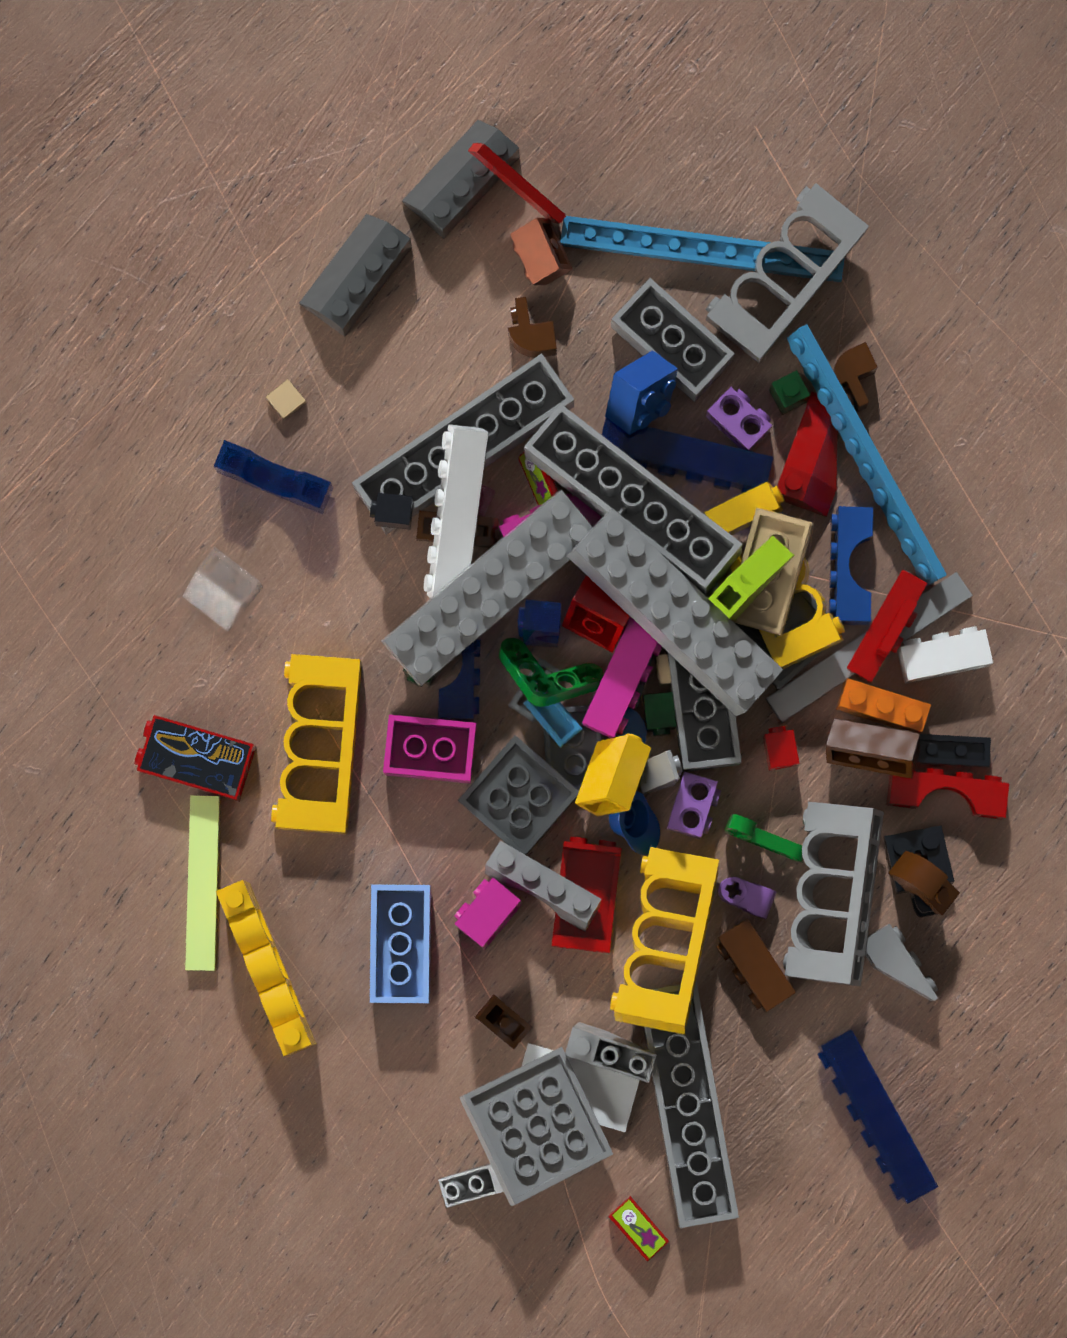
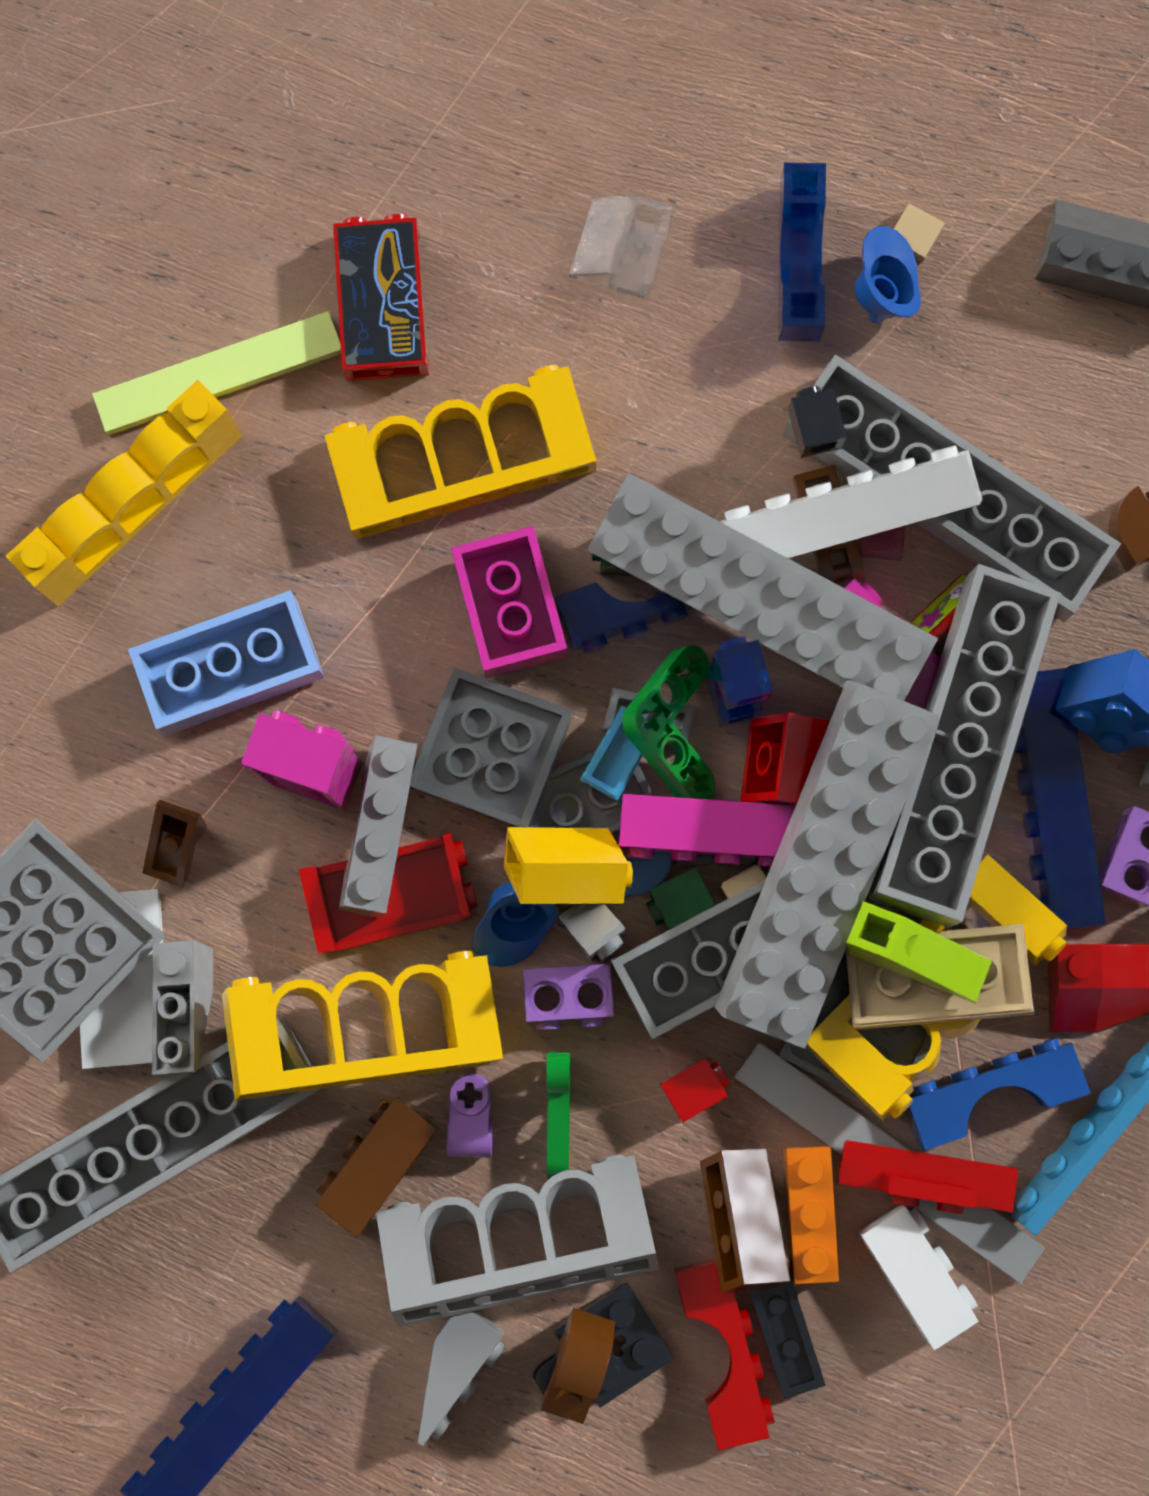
camera: 70 degrees right, 0 degrees up
(311, 428) = (889, 276): none -> blue piece

